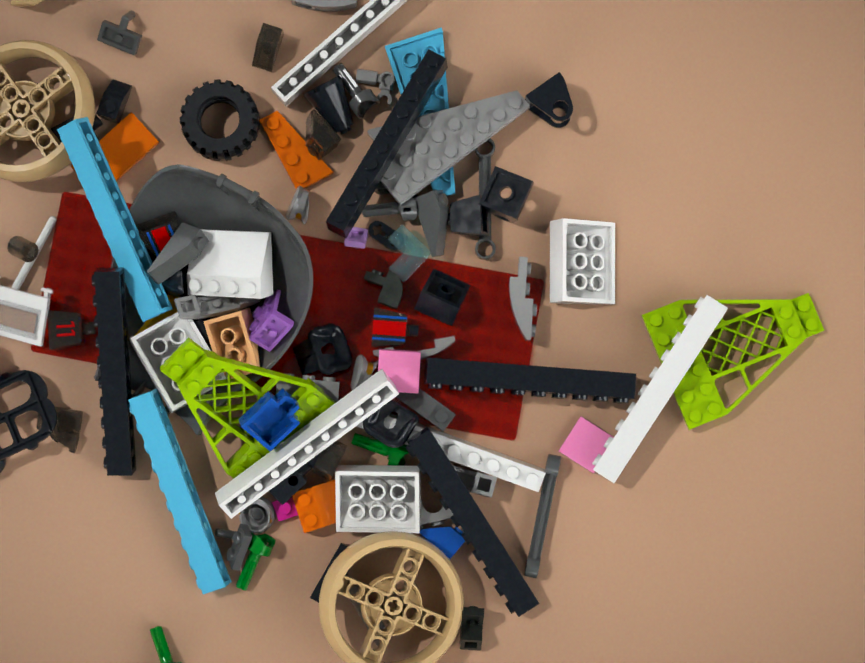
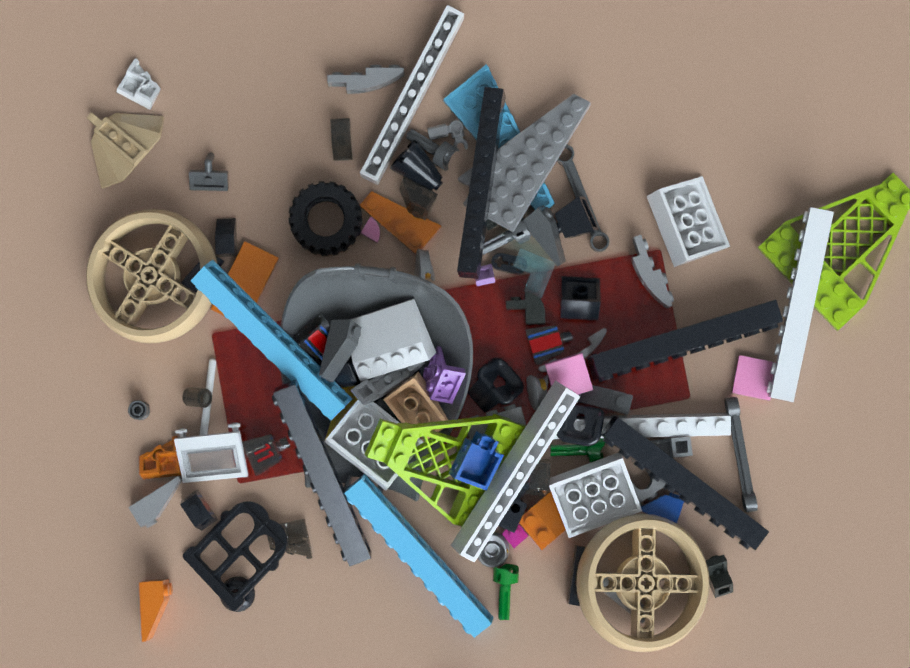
camera: 20 degrees left, 0 degrees up
(240, 544) = (489, 580): dark grey plate -> none
(262, 149) = (371, 230): none -> bright pink tile
(505, 208) = (601, 200): black hose -> none
(548, 97) = (604, 88): black hose -> none

